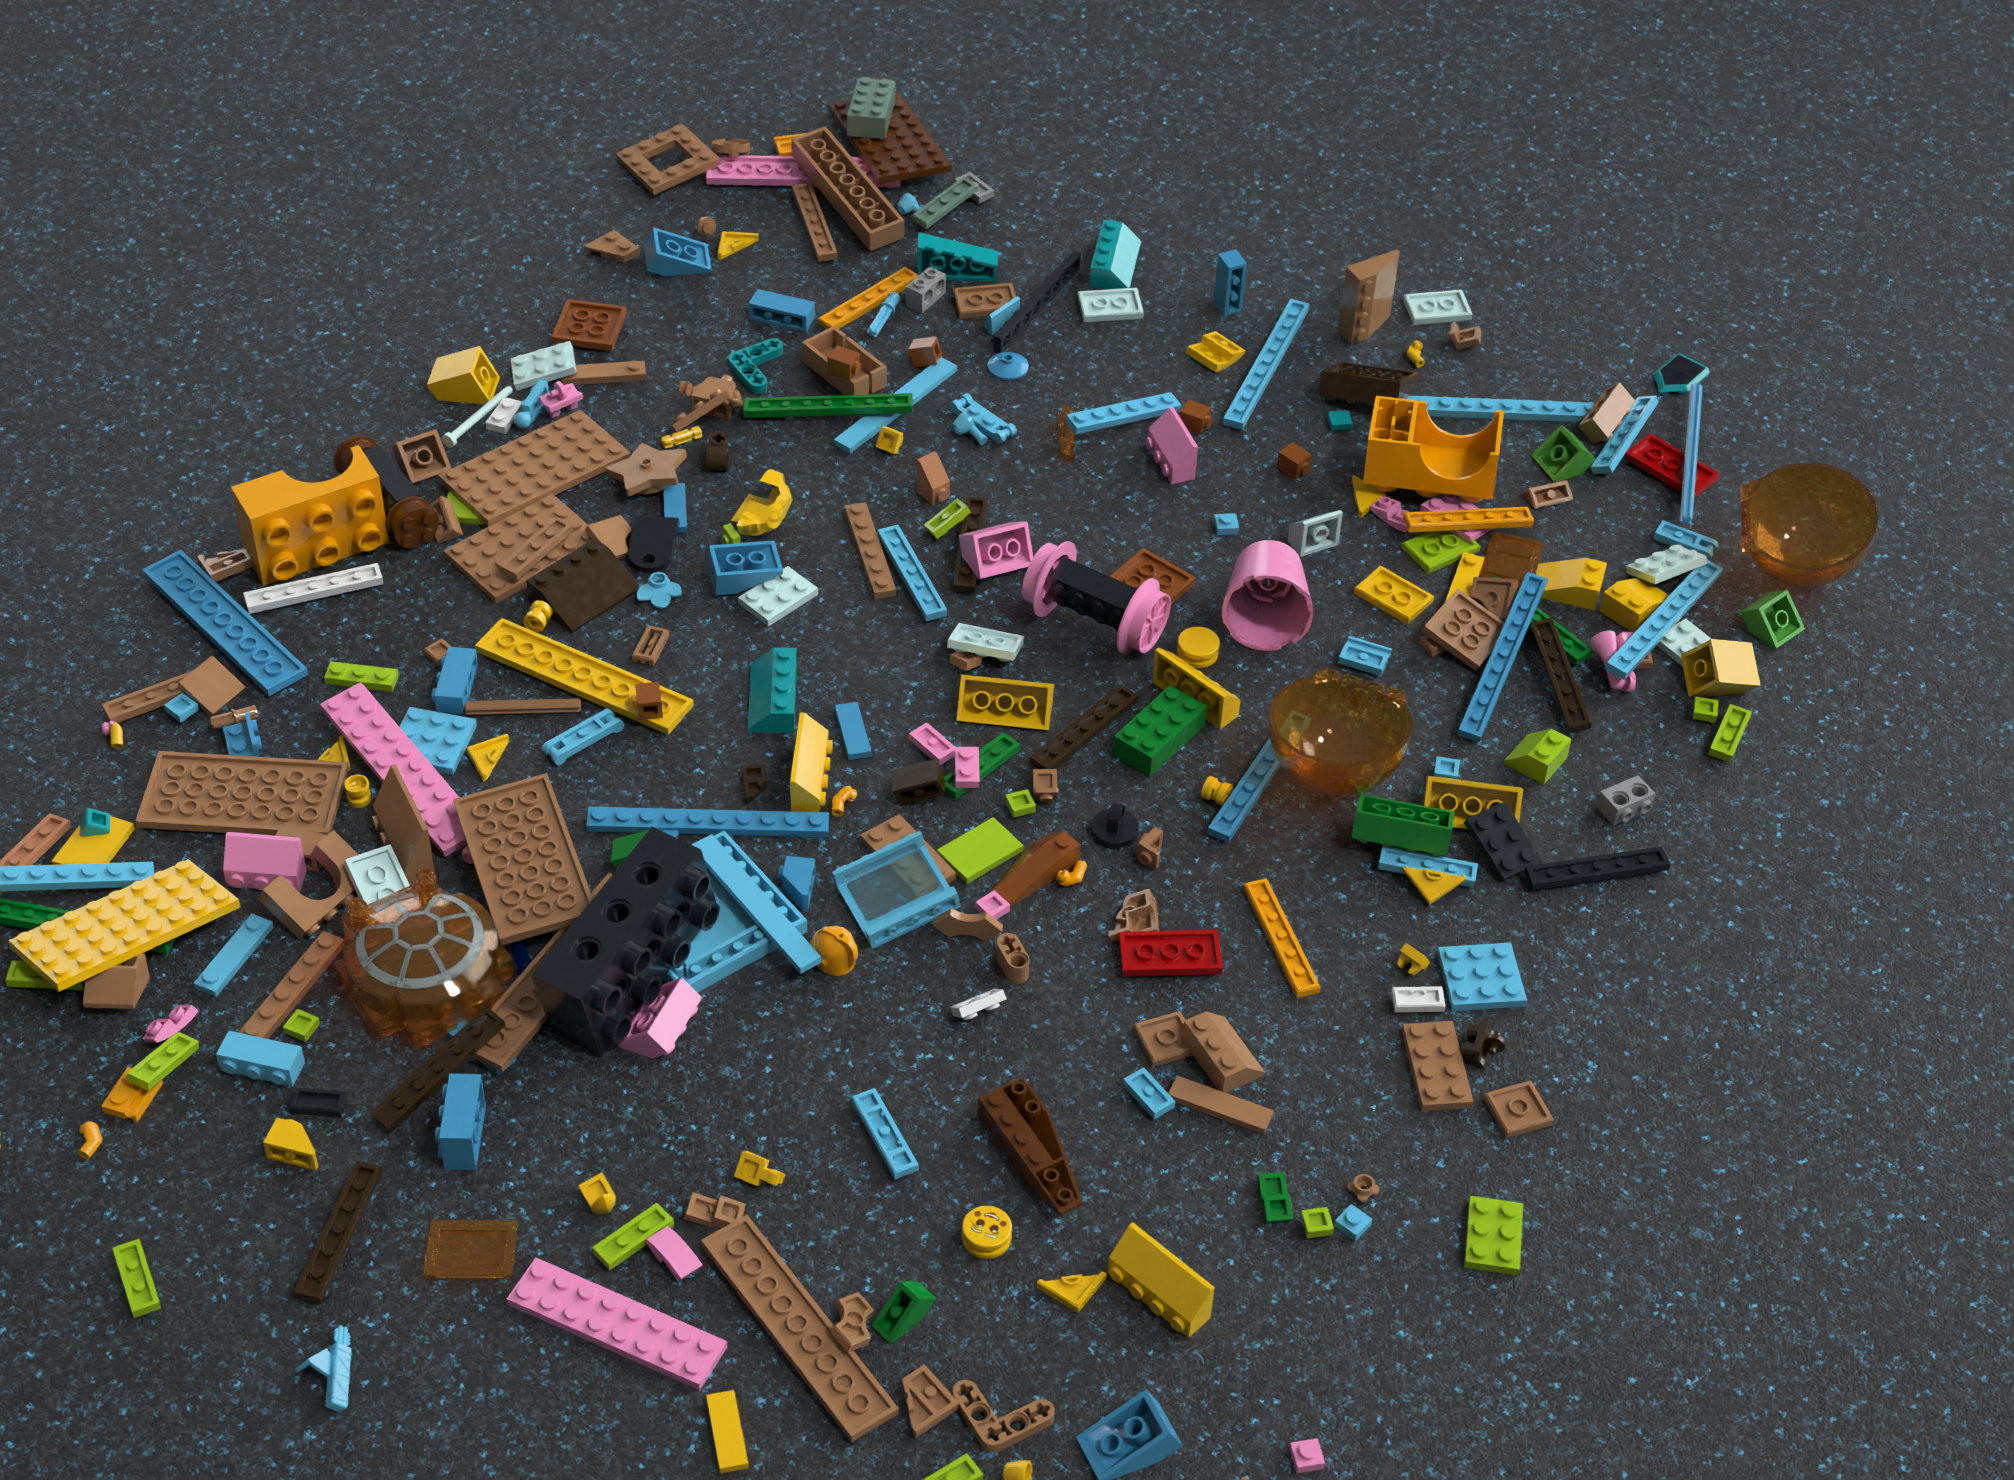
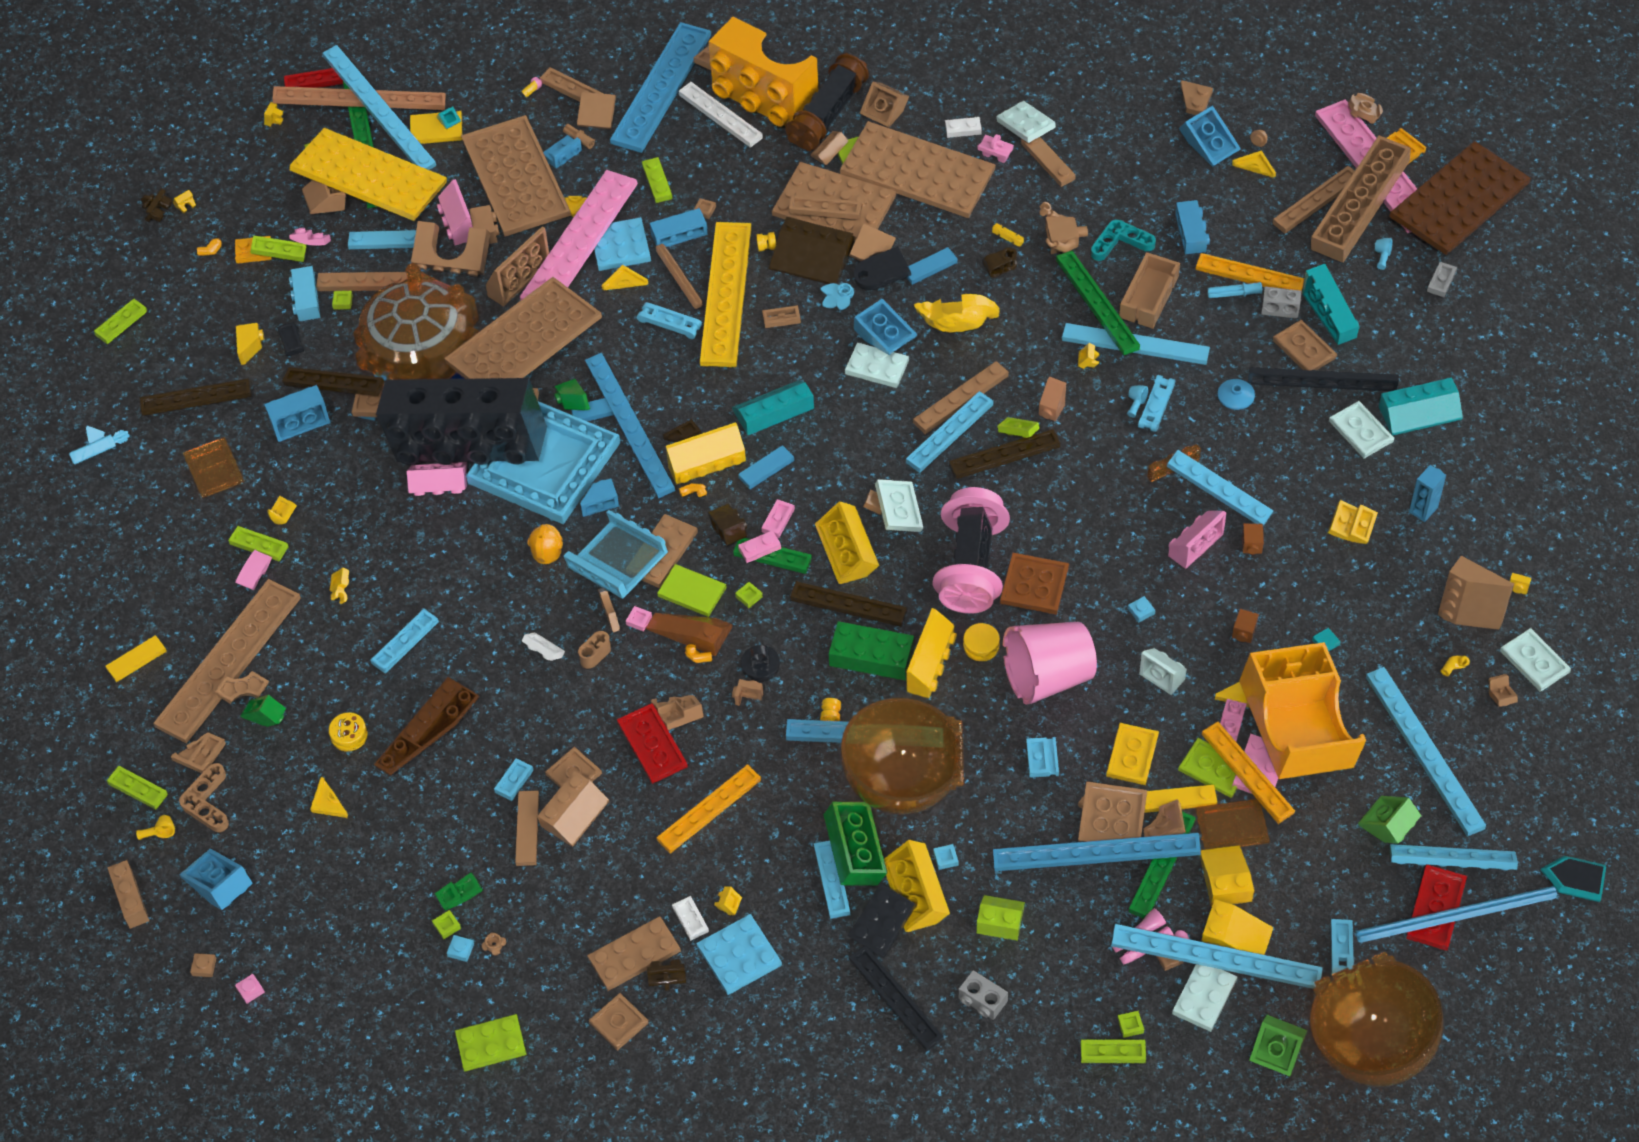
camera: 70 degrees right, 10 degrees up
(181, 707) = (571, 106): medium azure plate -> none
(357, 791) = (550, 226): yellow wheel -> none
(376, 874) = (471, 273): light aqua plate -> none
(450, 439) = (950, 113): light aqua bar -> none
(464, 377) = (980, 86): yellow slope -> none
(531, 406) = (976, 135): medium azure plate -> none
(589, 324) = (1092, 125): dark orange plate -> none
(617, 1323) = (191, 567): bright pink plate -> none
(648, 469) = (951, 230): medium nougat plate -> none
(649, 700) = (712, 337): dark orange brick -> none
(699, 161) = (1293, 84): medium nougat plate -> none
(700, 409) = (1032, 228): medium nougat plate -> none
(713, 1212) = (299, 576): medium nougat slope -> none
(730, 535) = (911, 313): lime plate -> none
(758, 905) = (557, 480): medium azure tile -> none
(843, 363) = (1130, 286): dark orange brick -> none
(871, 108) = (1473, 167): sand green brick -> none
(924, 351) = (1202, 333): dark orange brick -> none
(944, 203) = (1400, 268): sand green tile -> none
(996, 320) = (1285, 362): medium azure slope -> none
(997, 549) = (1000, 470): bright pink slope -> none
(1045, 784) = (774, 602): medium nougat bracket -> none
(1161, 1281) = (346, 847): yellow slope -> none
(1266, 364) = (1360, 562): medium azure plate -> none
(1365, 382) = (1379, 641): dark brown slope -> none
(1432, 883) = (812, 887): yellow tile -> none
(1549, 494) = (1334, 825): medium nougat slope -> none
(1560, 675) = (1100, 901): dark brown plate -> none
(1607, 413) = (1465, 832): brick -> none
(1666, 564) = (1293, 940): light aqua plate -> none
(1720, 668) = (1177, 1019): yellow slope -> none

